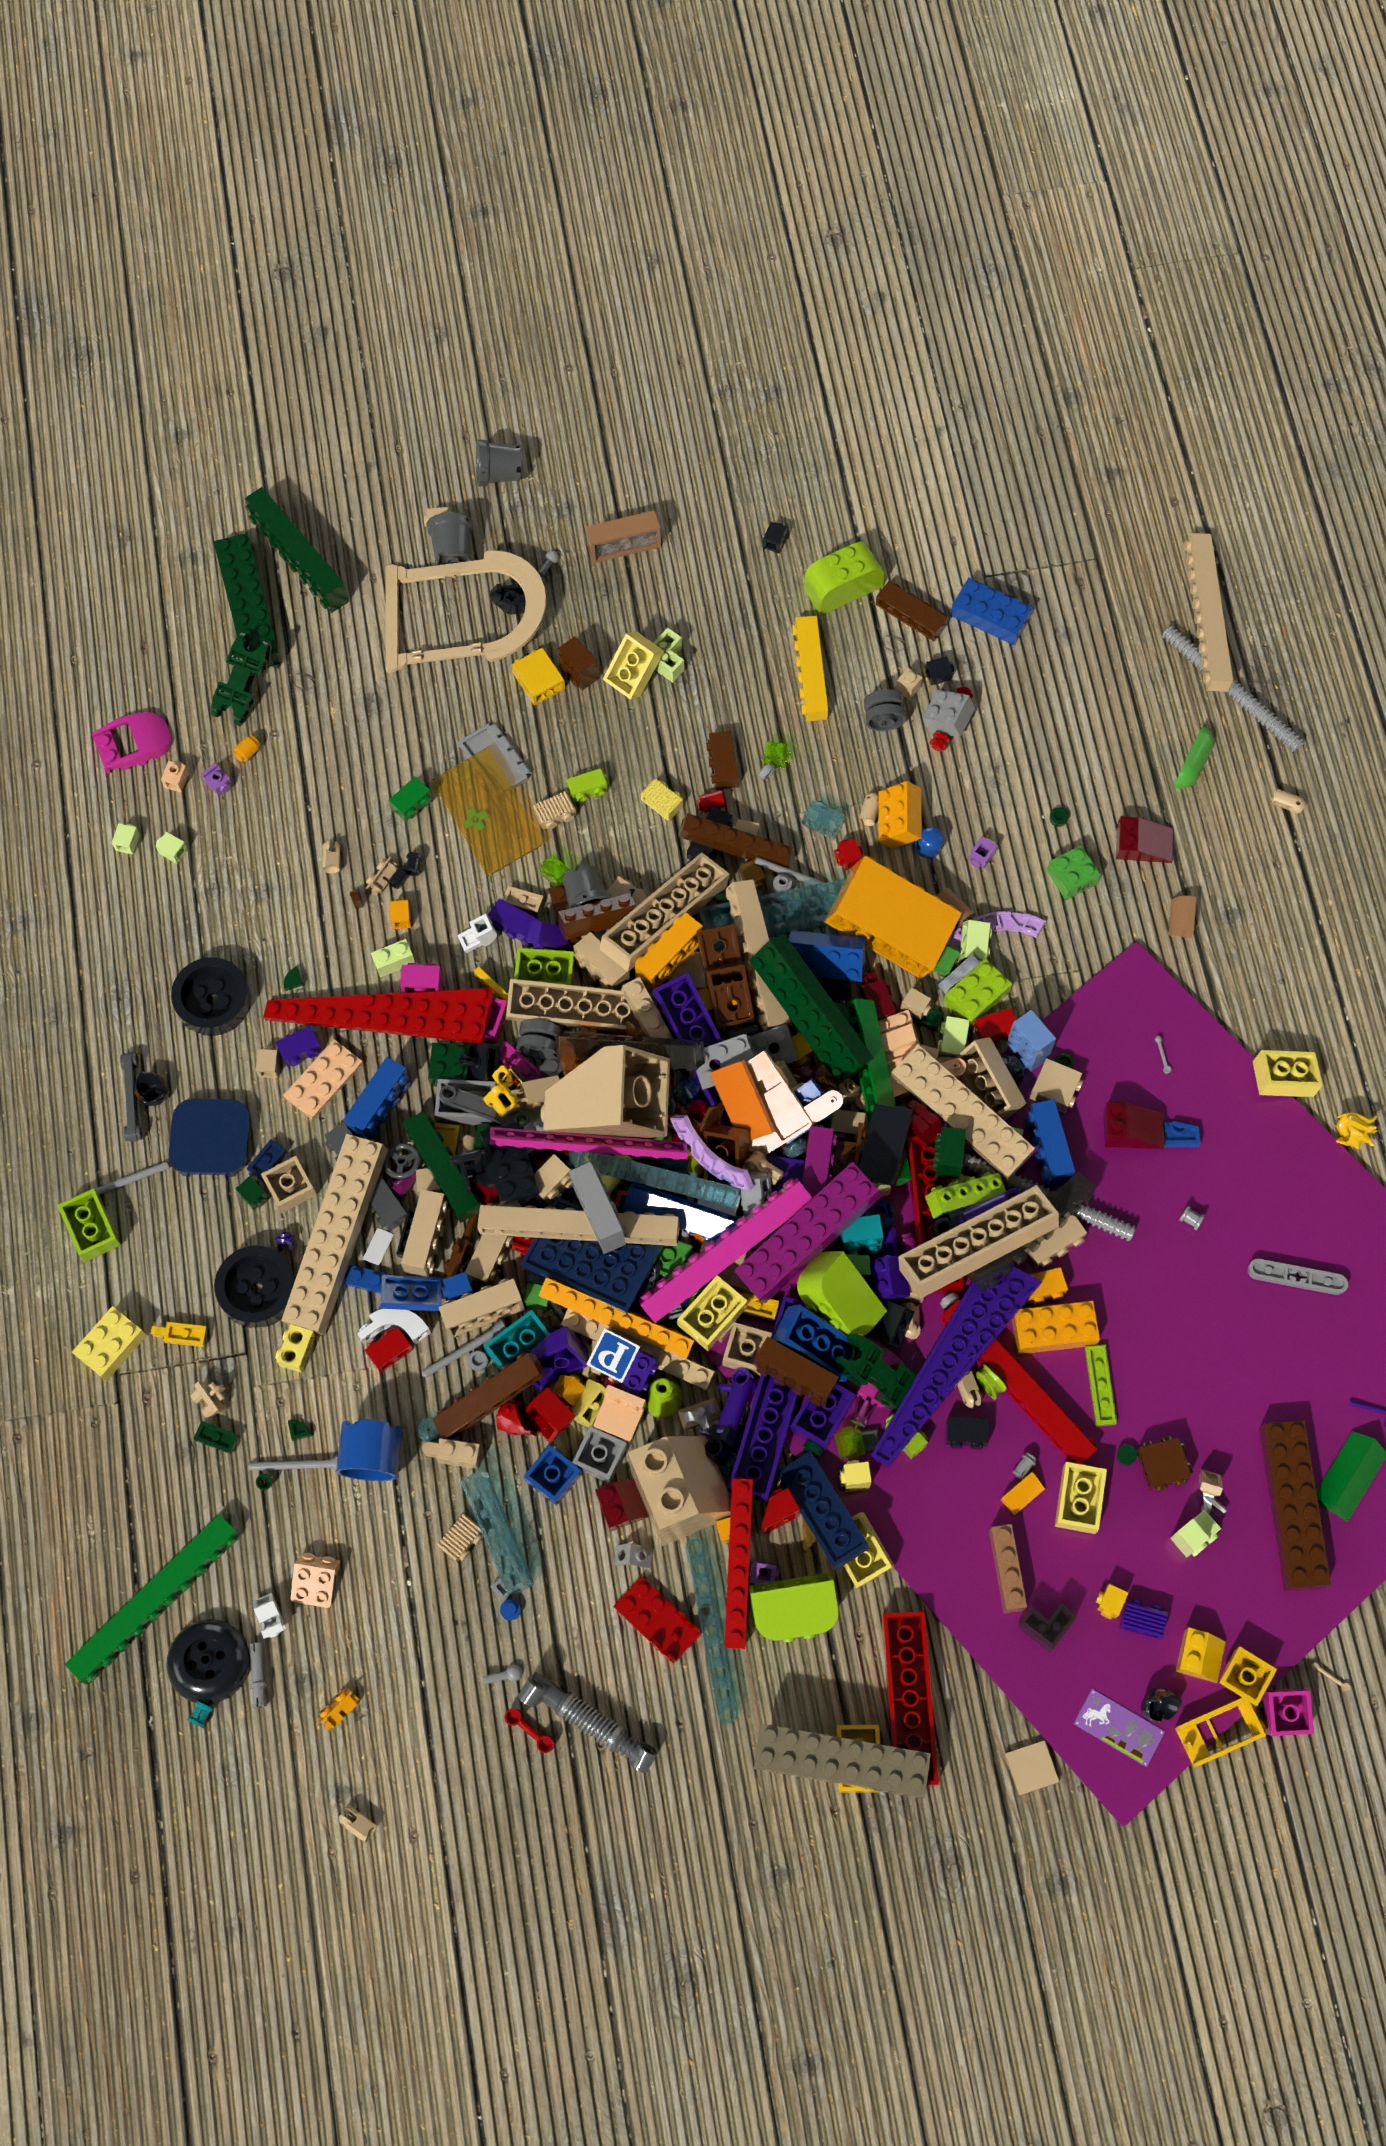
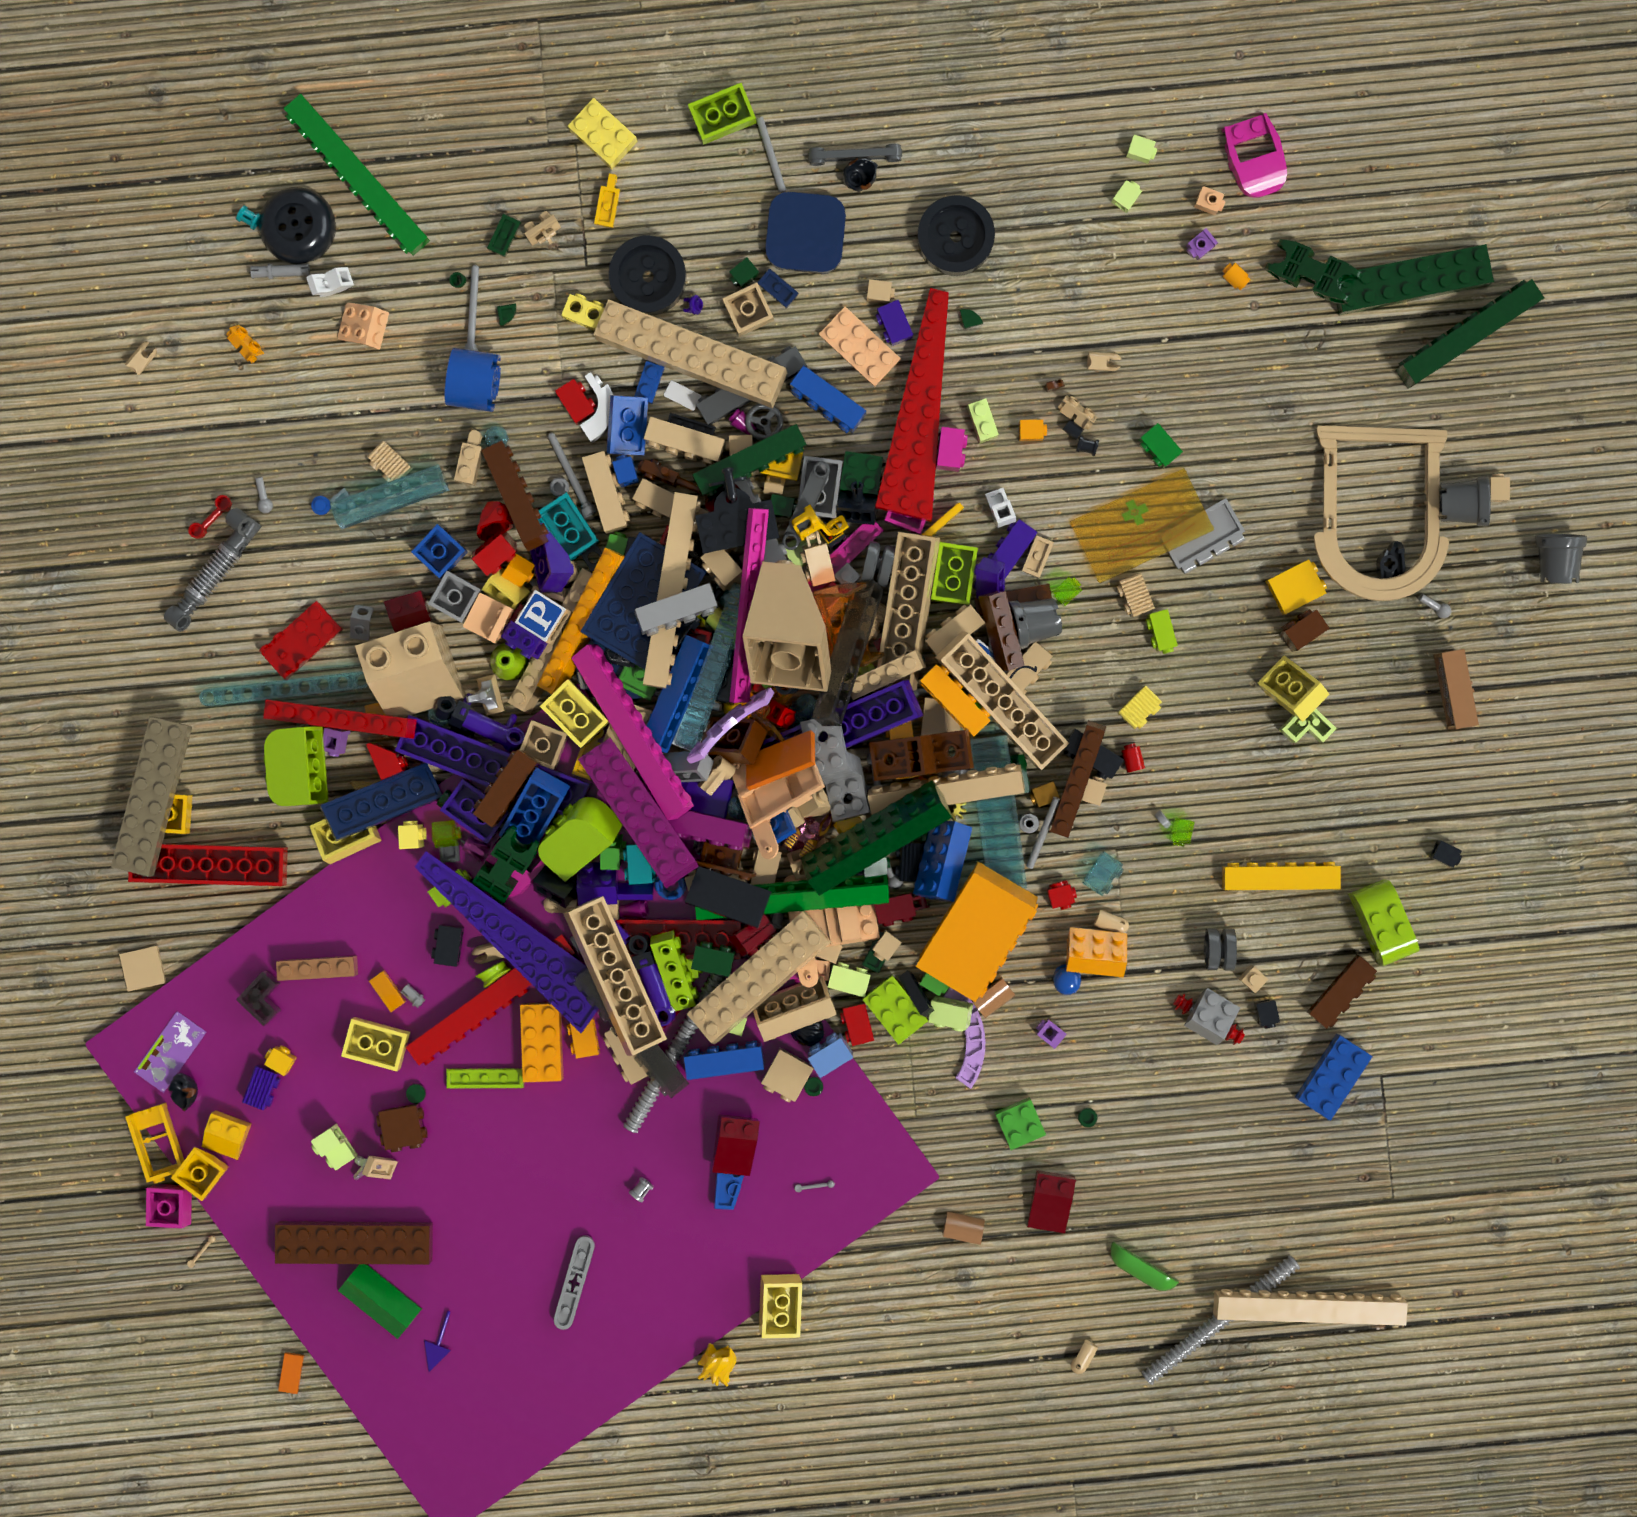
camera: 90 degrees right, 20 degrees up
(722, 760) = (1180, 774): reddish brown brick -> none

